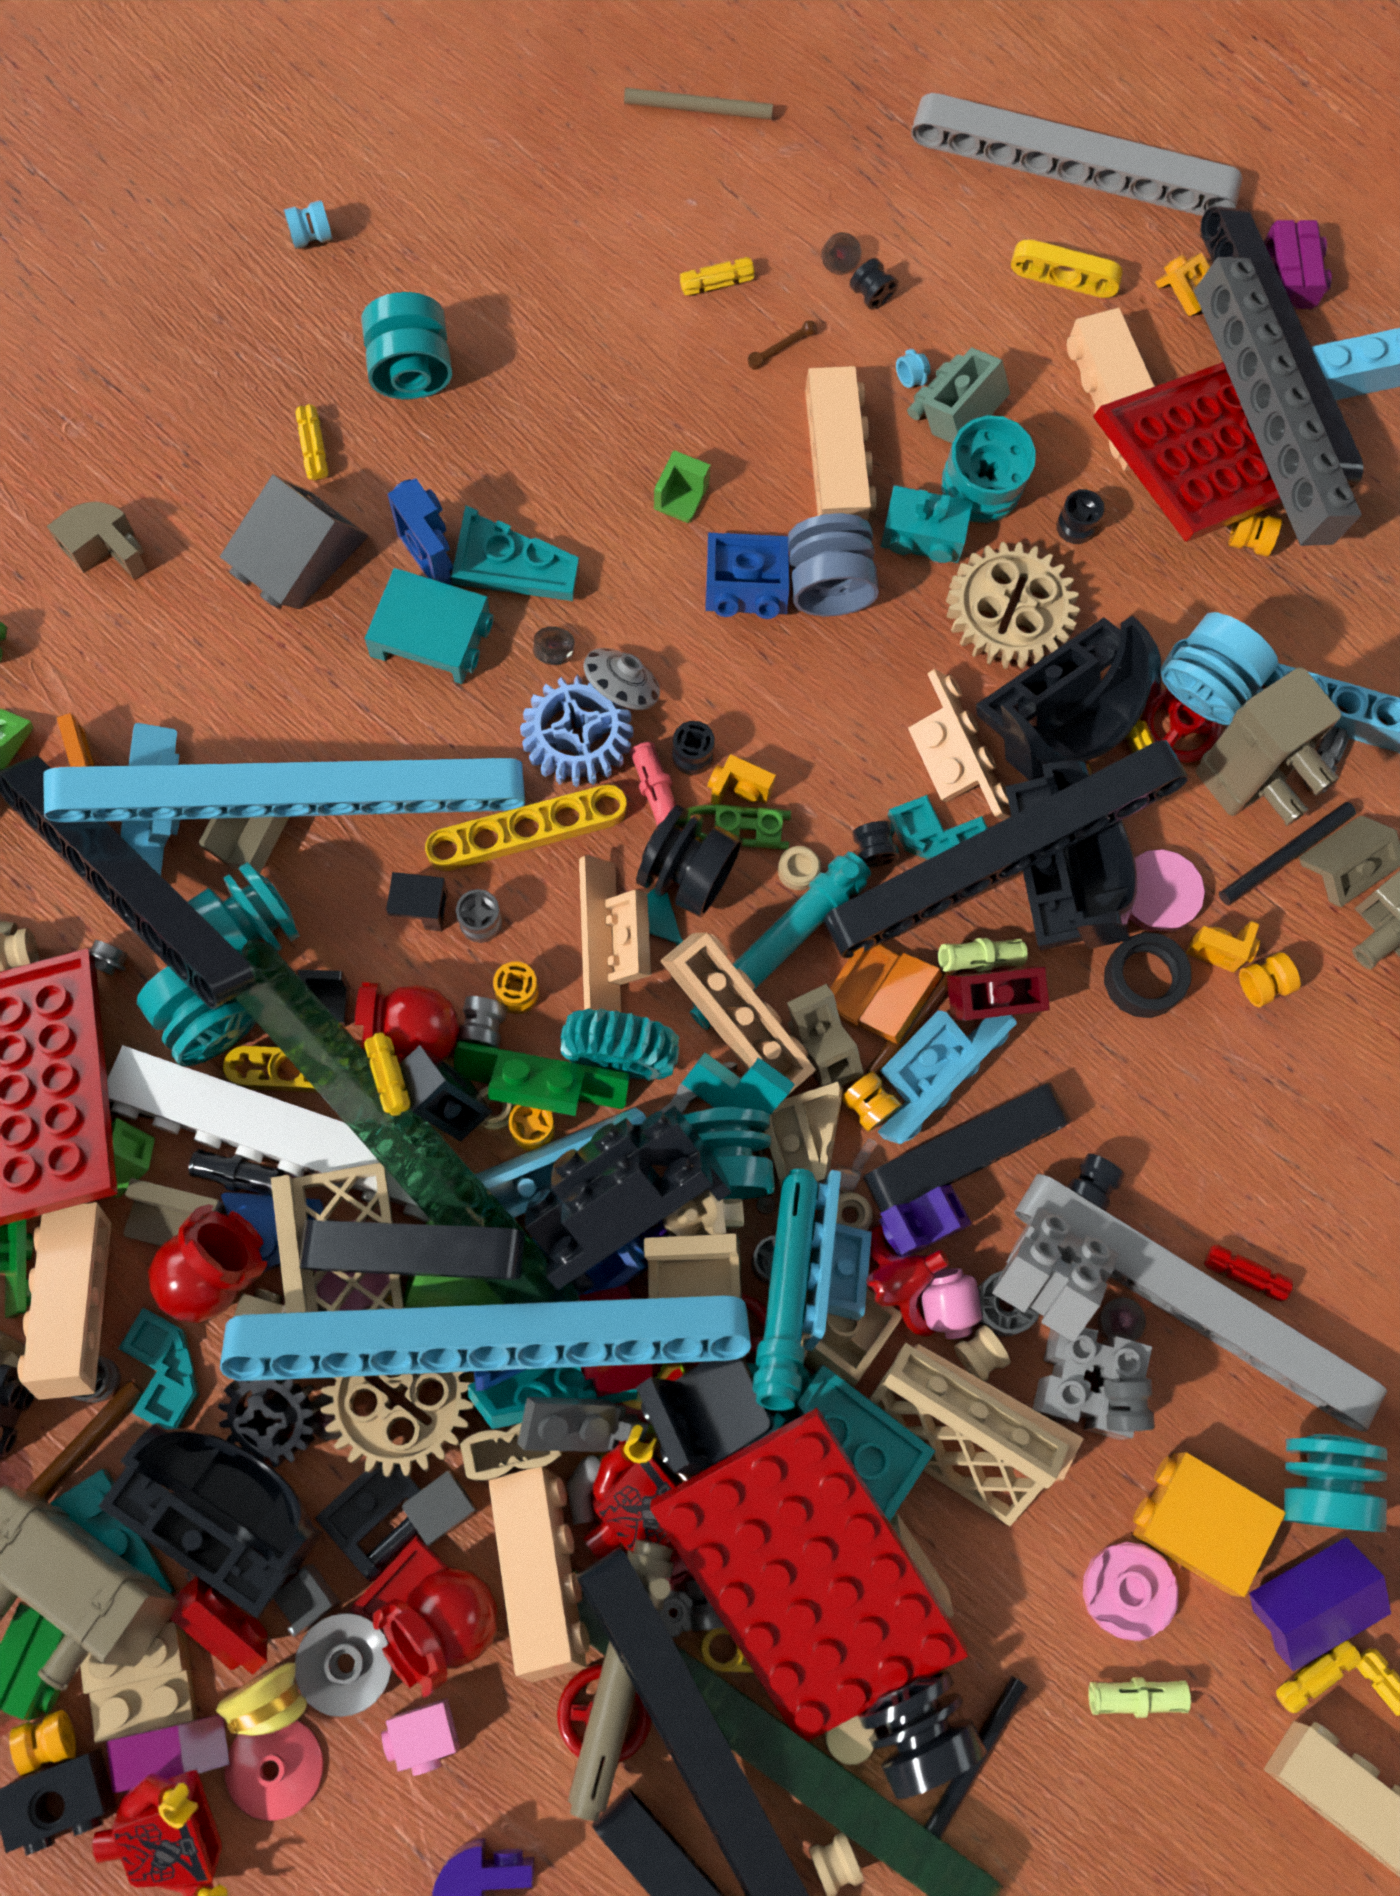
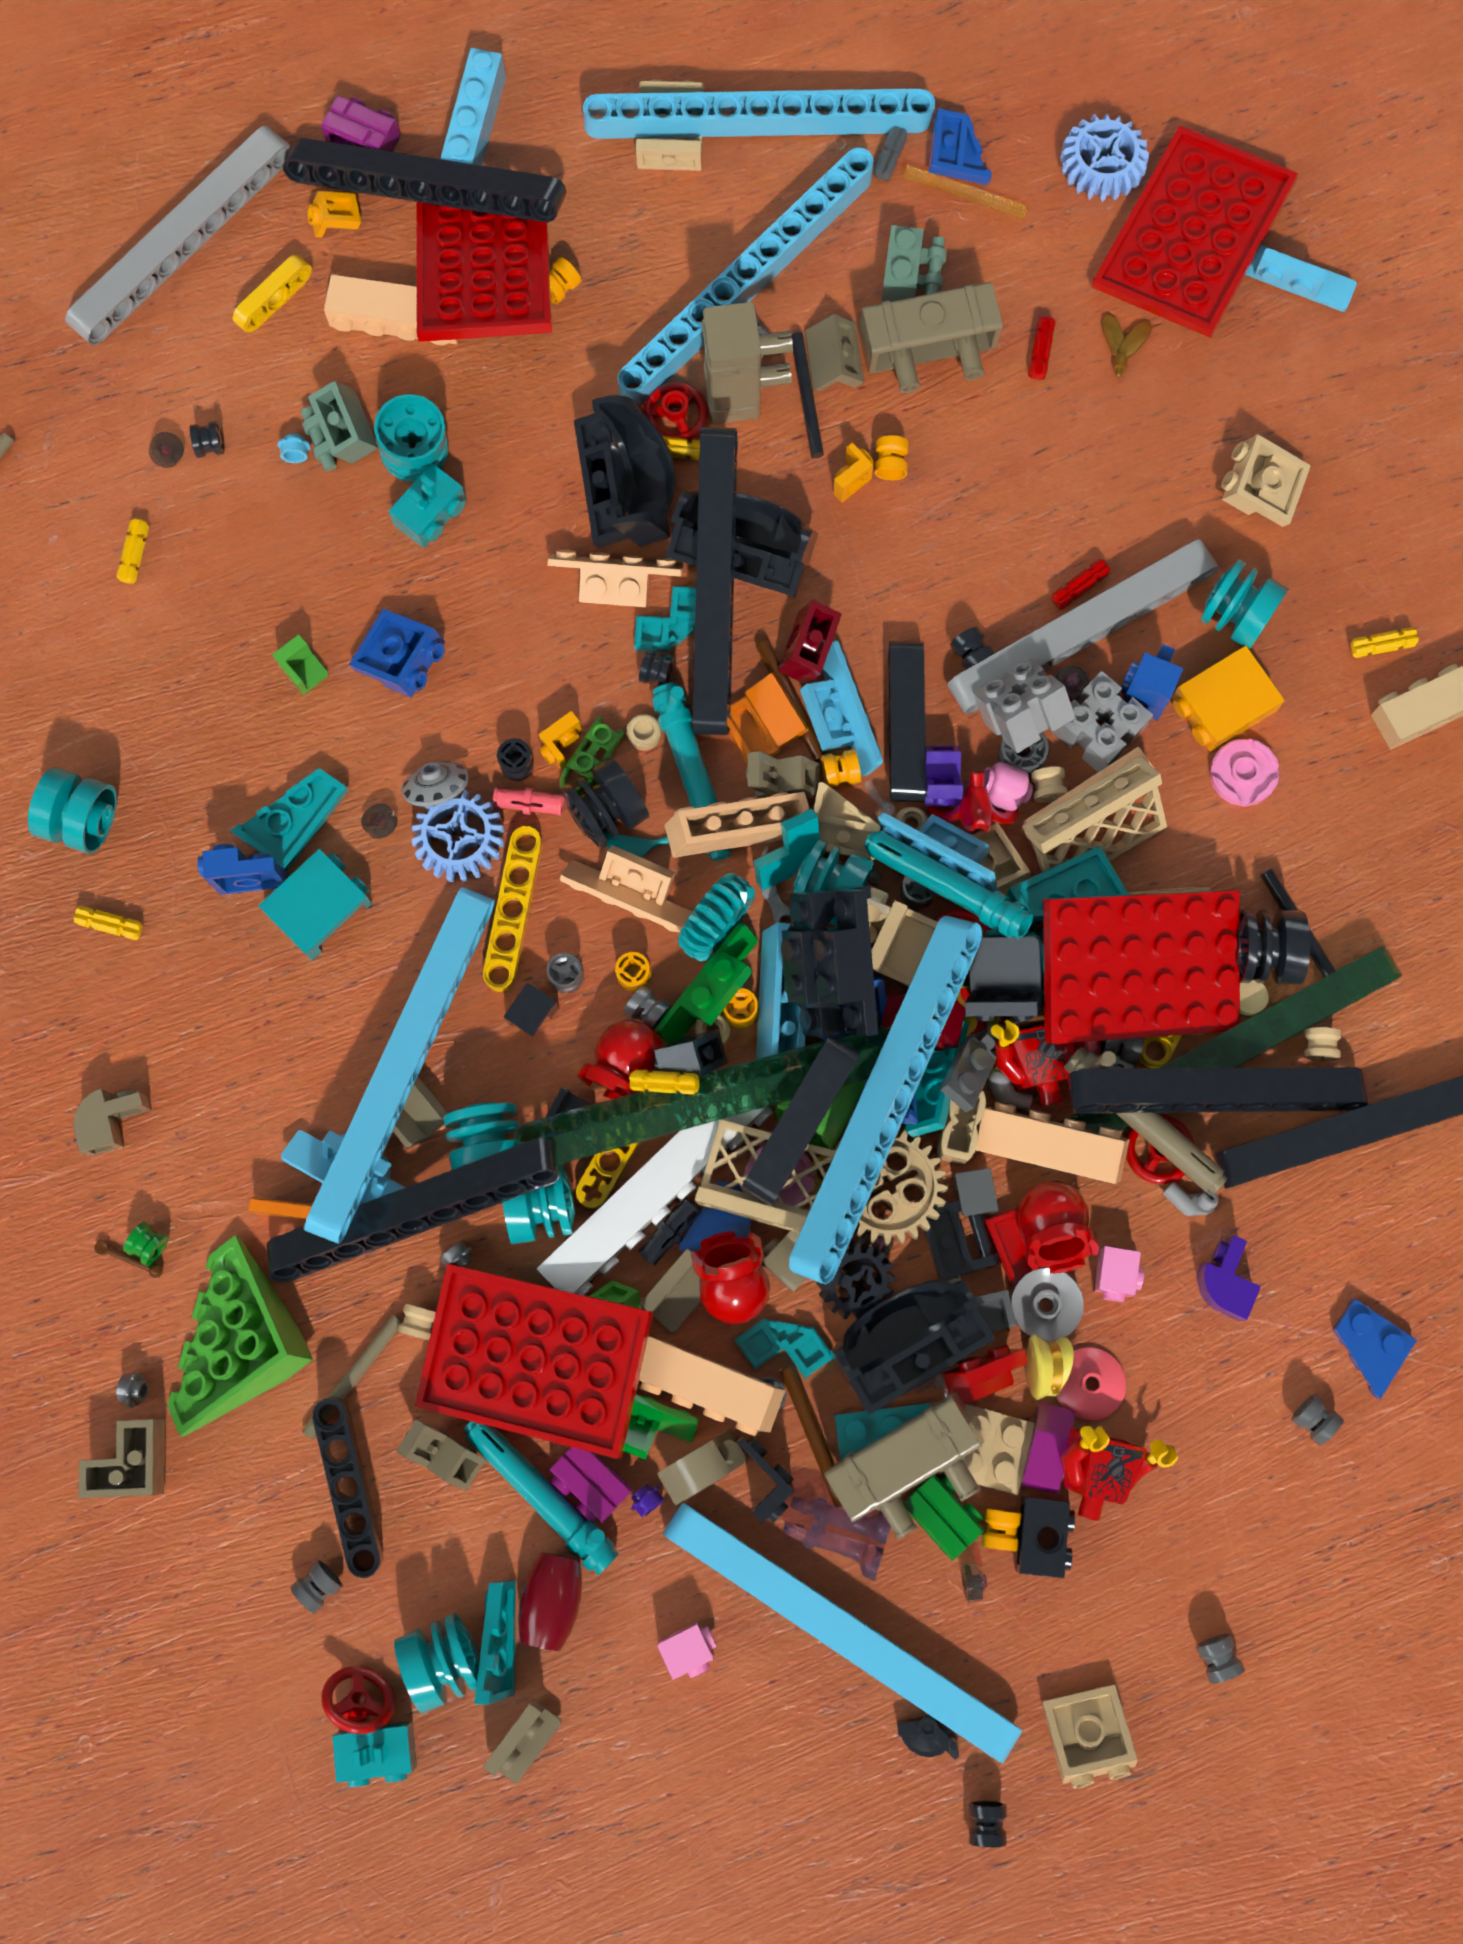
camera: 55 degrees left, 5 degrees up
(290, 543) = (192, 975): slope -> none
(553, 1787) = (1191, 1204): none -> light grey arm
(756, 359) = (218, 558): reddish brown hinge -> none
(832, 565) = (429, 587): sand blue wheel -> none
(838, 442) = (330, 535): light nougat brick -> none
(977, 591) = (548, 461): tan gear -> none
(982, 954) = (775, 638): yellowish green pin -> none
(1080, 516) = (476, 387): black wheel -> none
(1126, 1393) = (1133, 703): dark grey wheel -> none
(1139, 1697) = (1312, 801): yellowish green pin -> none
(1167, 891) = (794, 488): bright pink tile -> none
(1169, 953) = (853, 513): black tyre -> none
(1178, 1417) = (1152, 681): none -> blue brick
(1219, 667) = (660, 363): medium azure wheel -> none
(1276, 403) = (471, 208): dark grey brick -> none
(1318, 1676) = (1352, 683): yellow axle -> none
(1321, 1603) = (1309, 656): dark purple piece -> none

